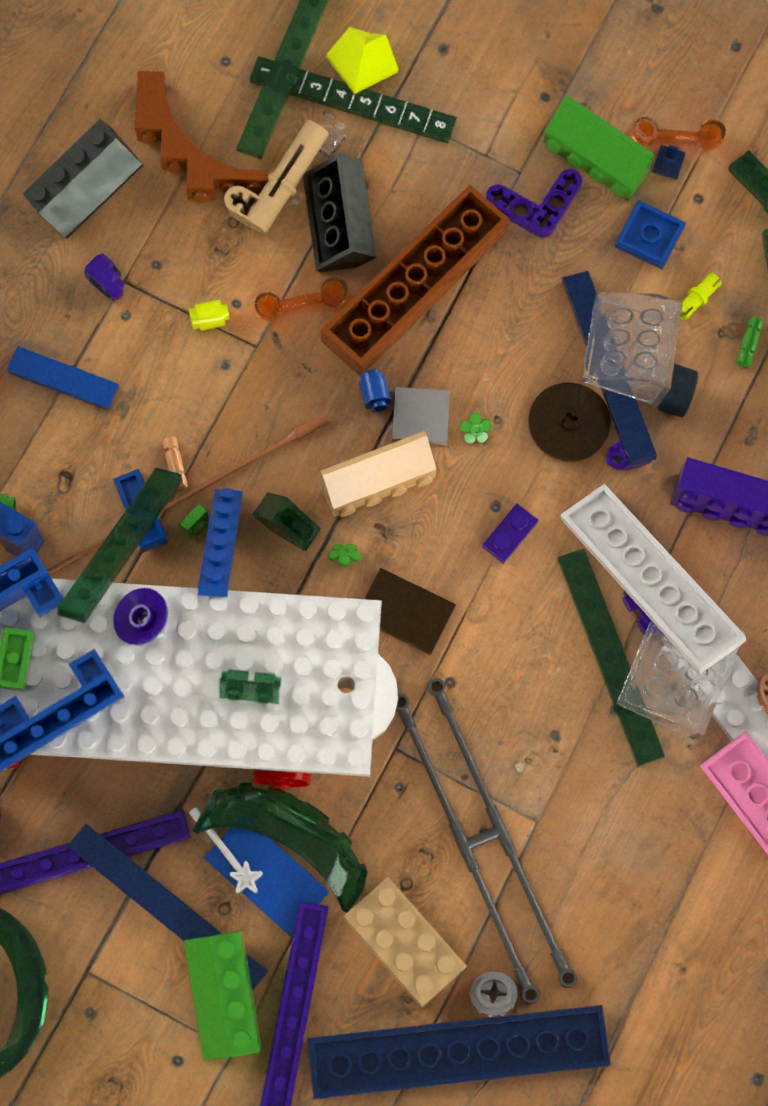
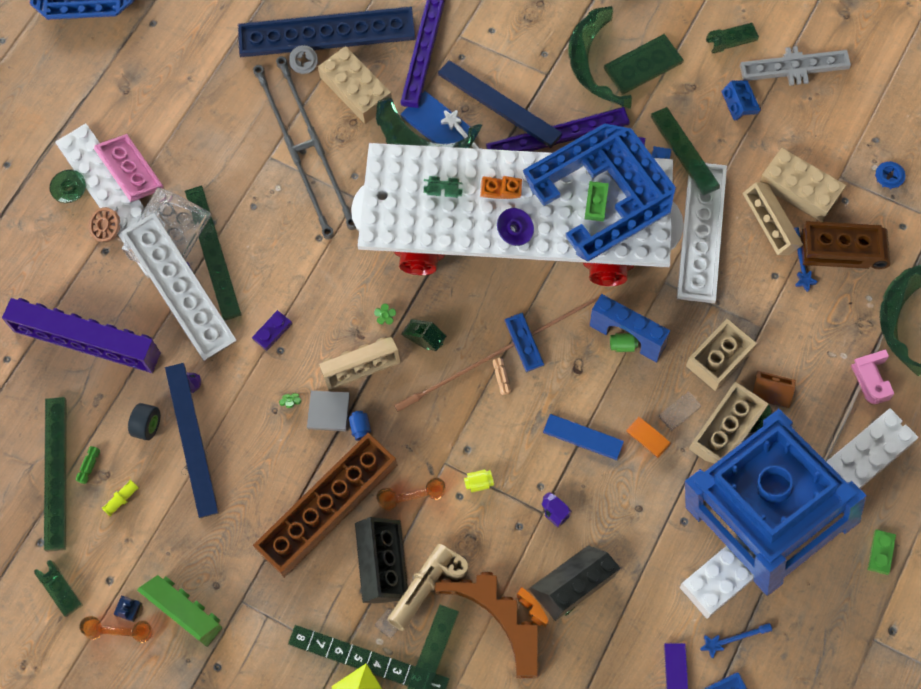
camera: 170 degrees left, 5 degrees down
(119, 545) = (532, 291): clear green tile -> none
(151, 167) = (537, 613): none -> orange slope
(160, 685) = (501, 188): none -> orange slope
(195, 521) = (486, 333): bright green plate -> none
(220, 543) = (466, 300): blue plate -> none
(223, 995) = (463, 55): bright green slope -> none
(410, 611) = (345, 279): dark brown tile -> none
(535, 212) = (233, 565): dark purple beam -> none
(560, 439) = (238, 407): dark brown piece -> none
(633, 344) = (171, 450): clear slope -> none
(650, 234) = (149, 549): blue tile -> none

